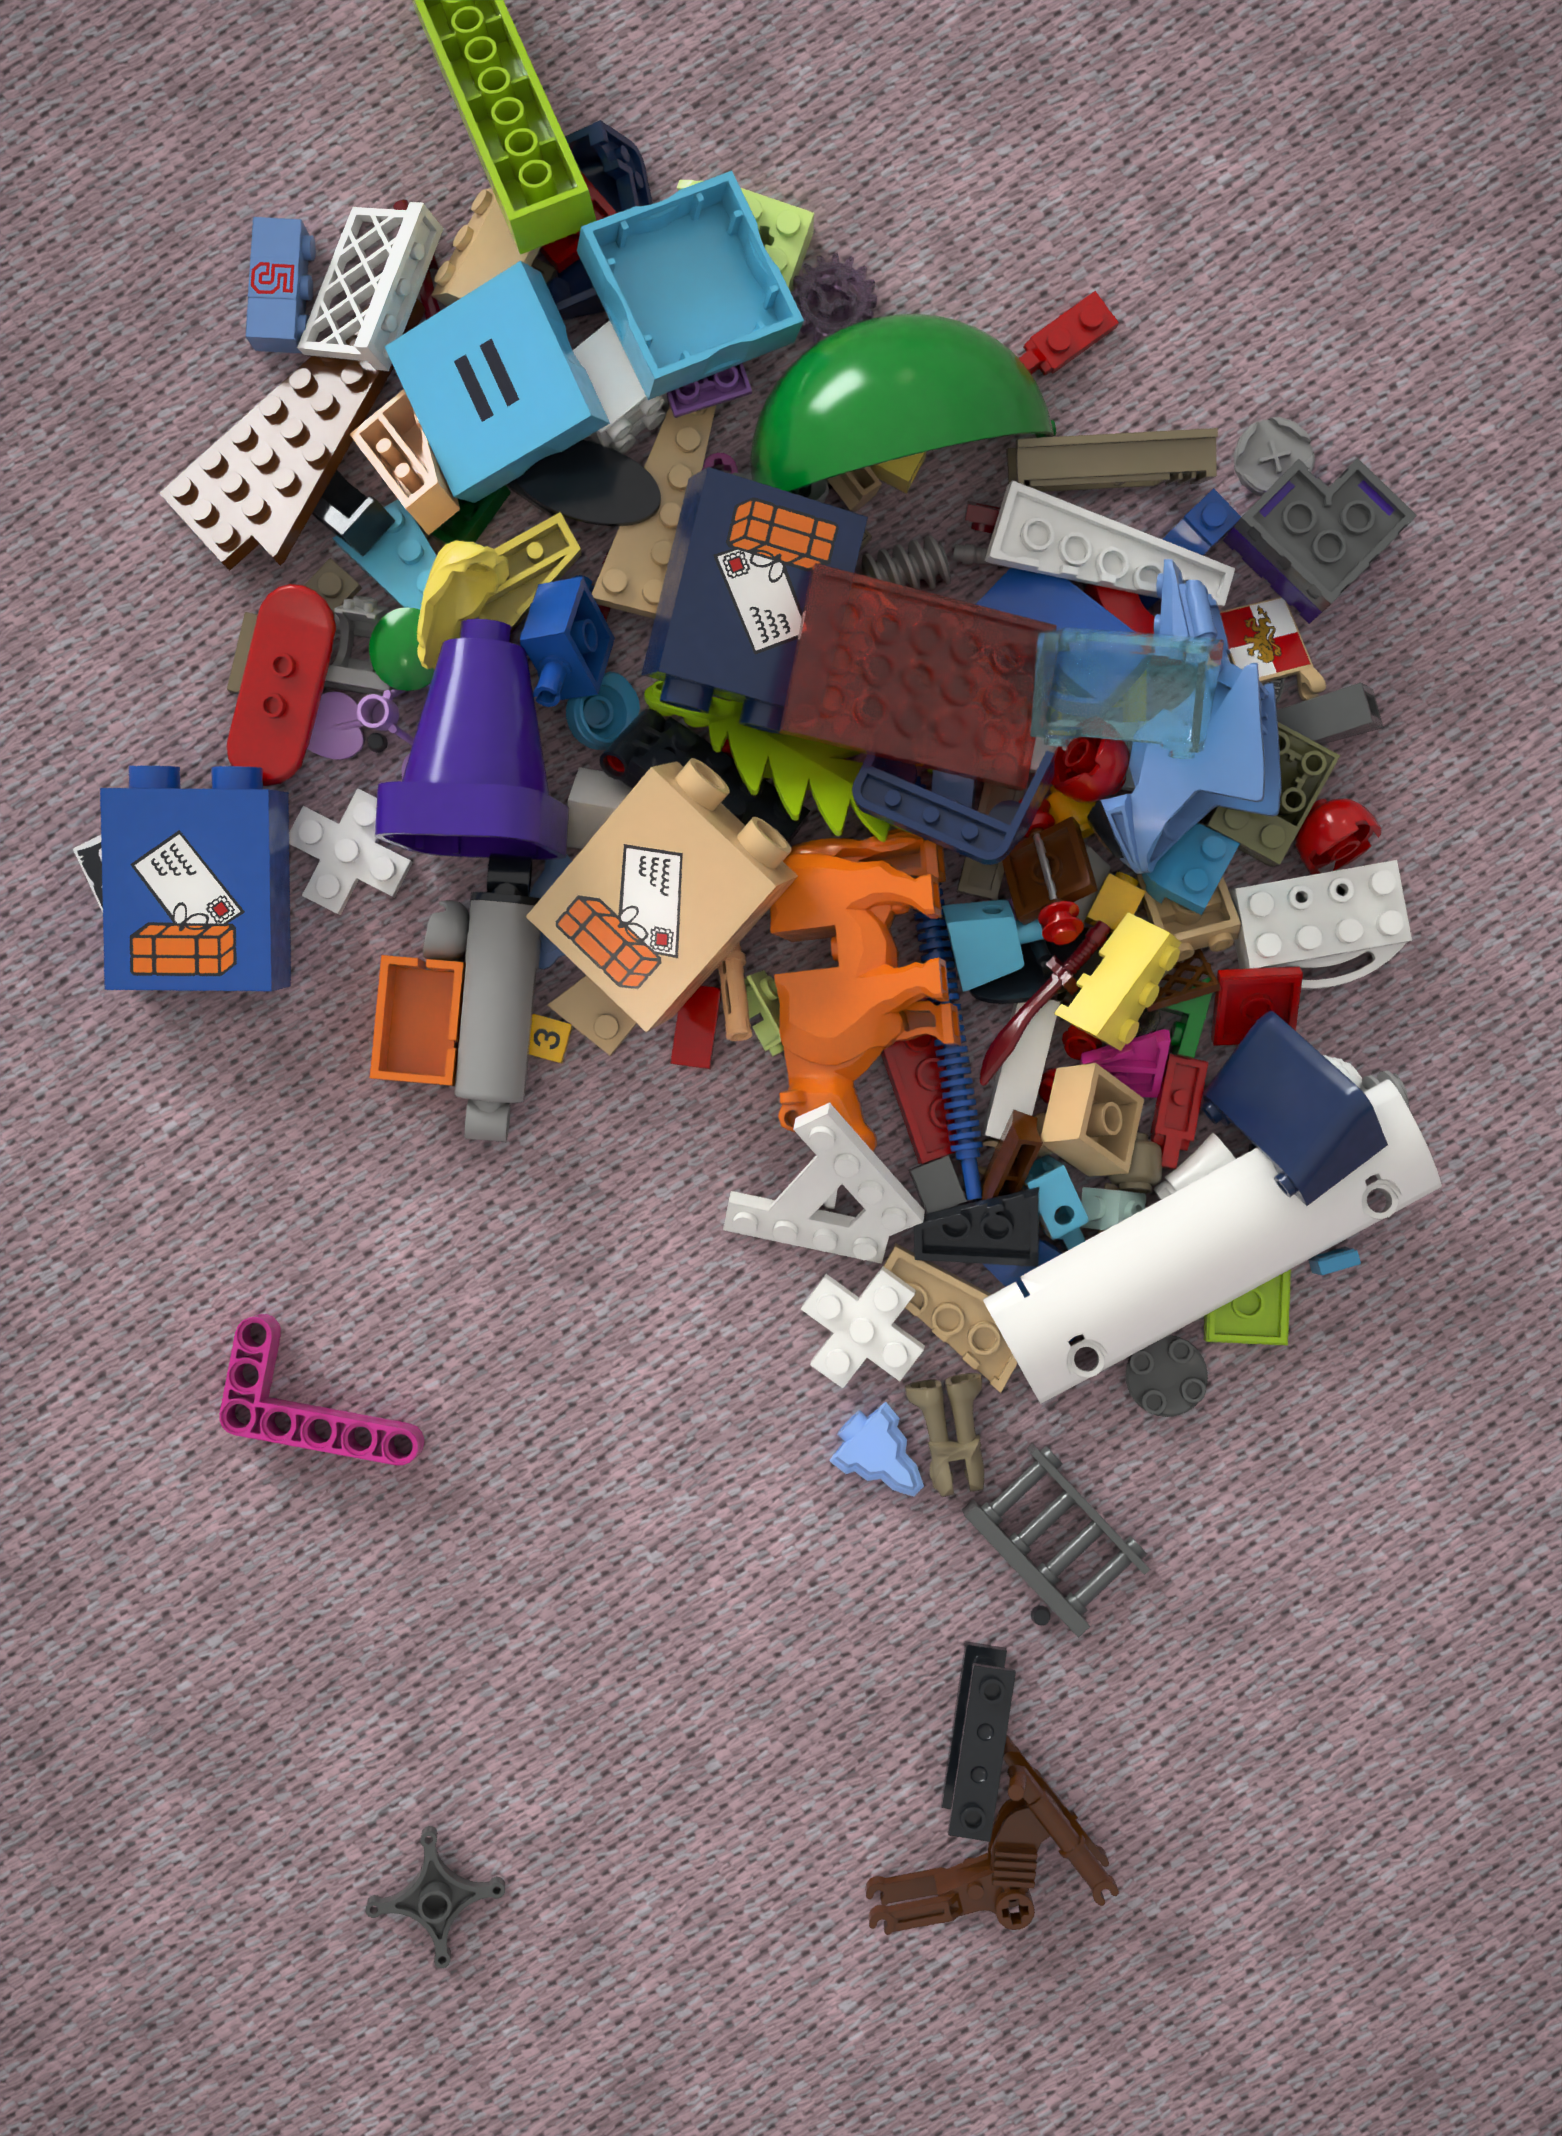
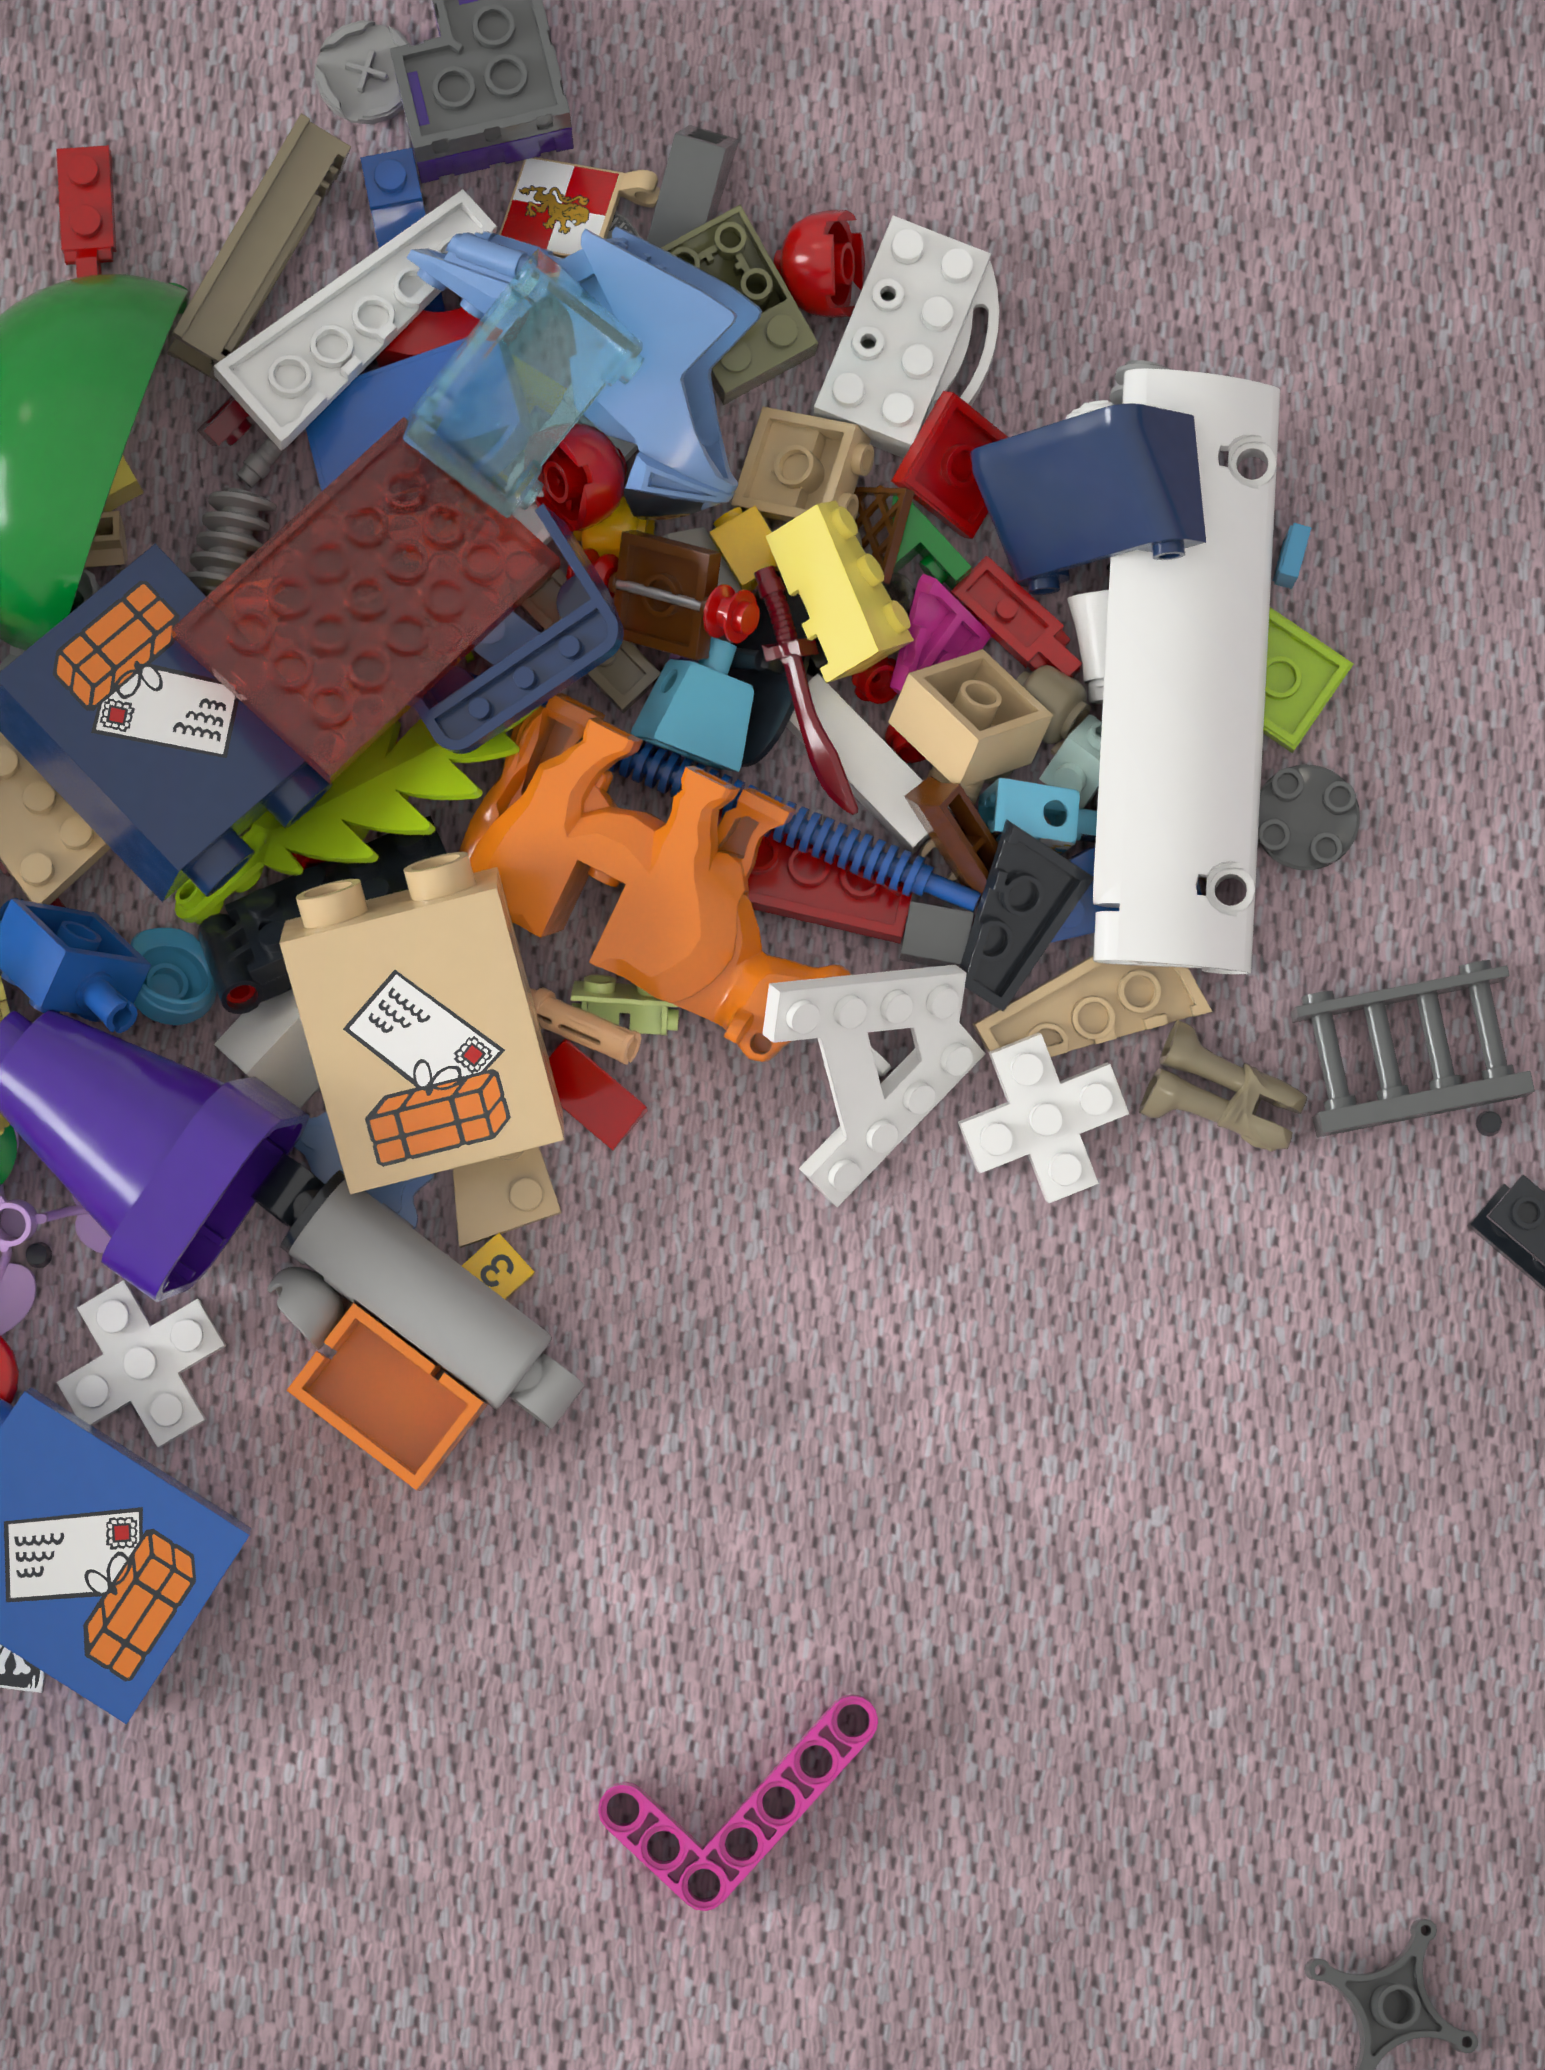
camera: 60 degrees left, 5 degrees down
(877, 1451) = (1191, 1187): light blue rock -> none
(1191, 868) = (761, 440): dark azure slope -> none

